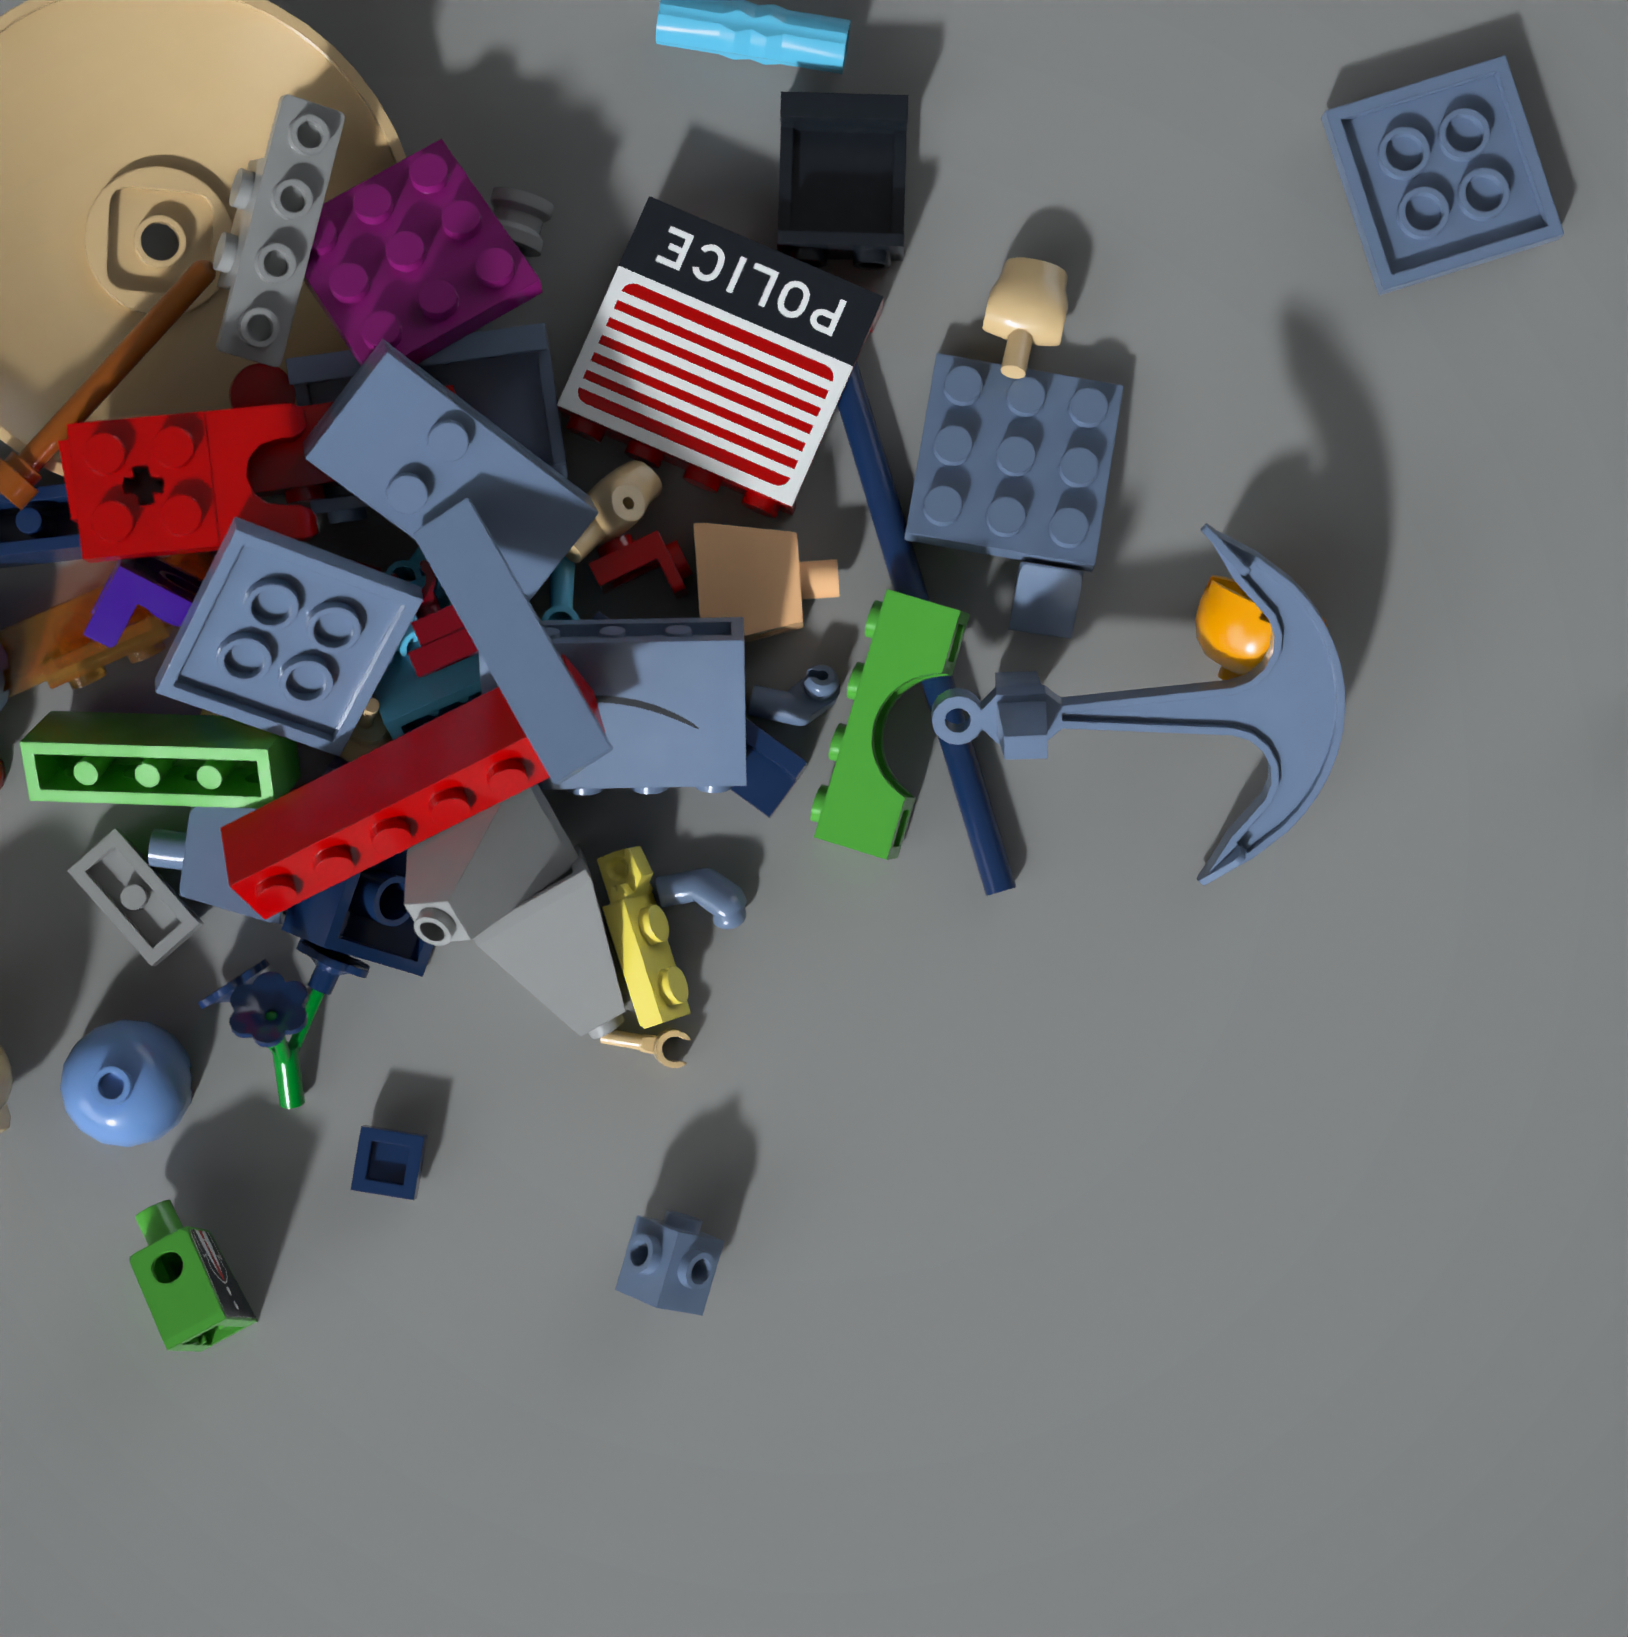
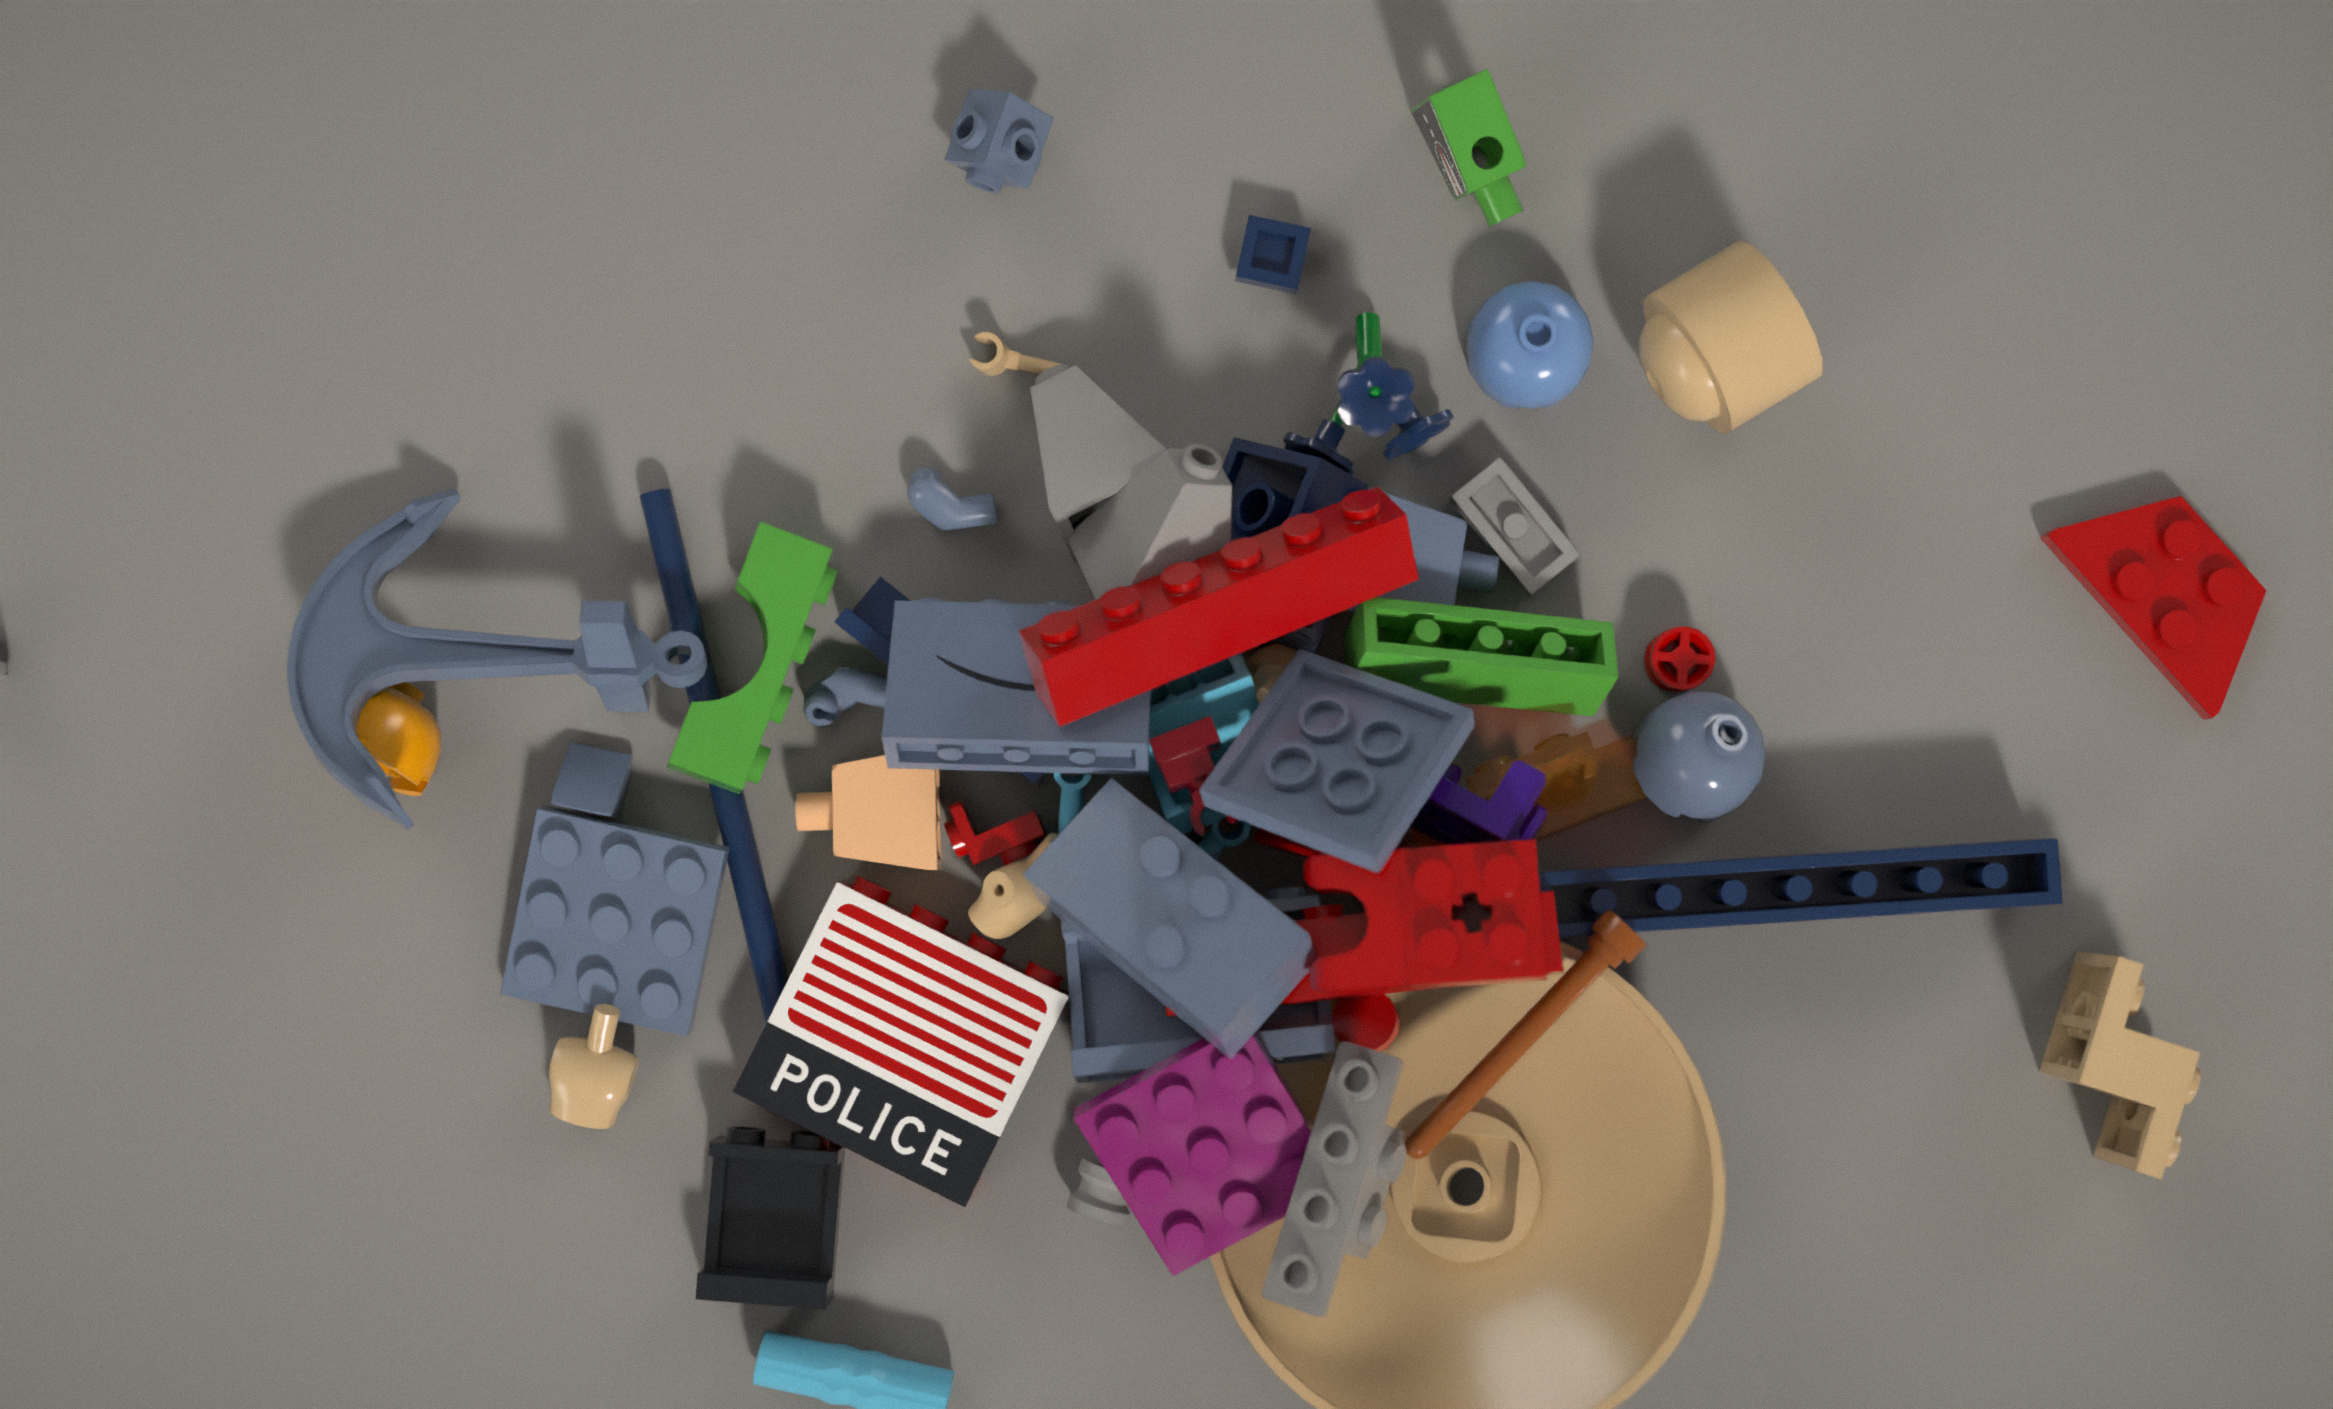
camera: 175 degrees left, 0 degrees up
(512, 642) = (1106, 736): sand blue piece -> none
(641, 939) = (1012, 459): light yellow hinge -> none
(1442, 175) = (162, 1194): sand blue plate -> none

